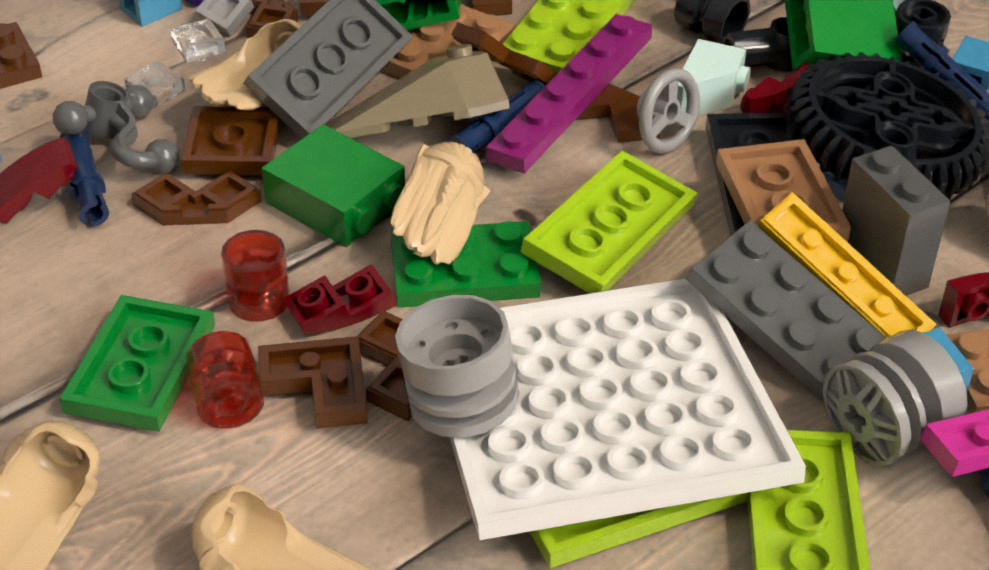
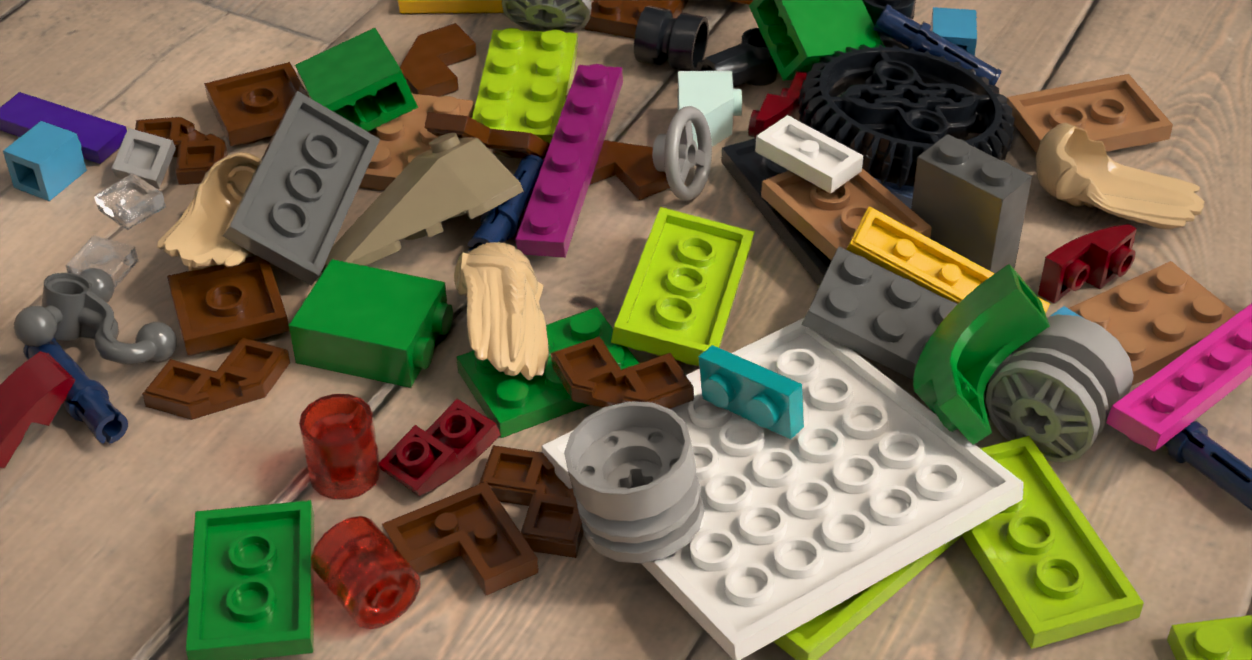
camera: 20 degrees left, 0 degrees up
(521, 297) = (597, 380): none -> reddish brown tile
(607, 323) = (751, 391): none -> teal plate
(767, 135) = (809, 154): none -> white plate
(820, 338) = (972, 345): none -> green arch

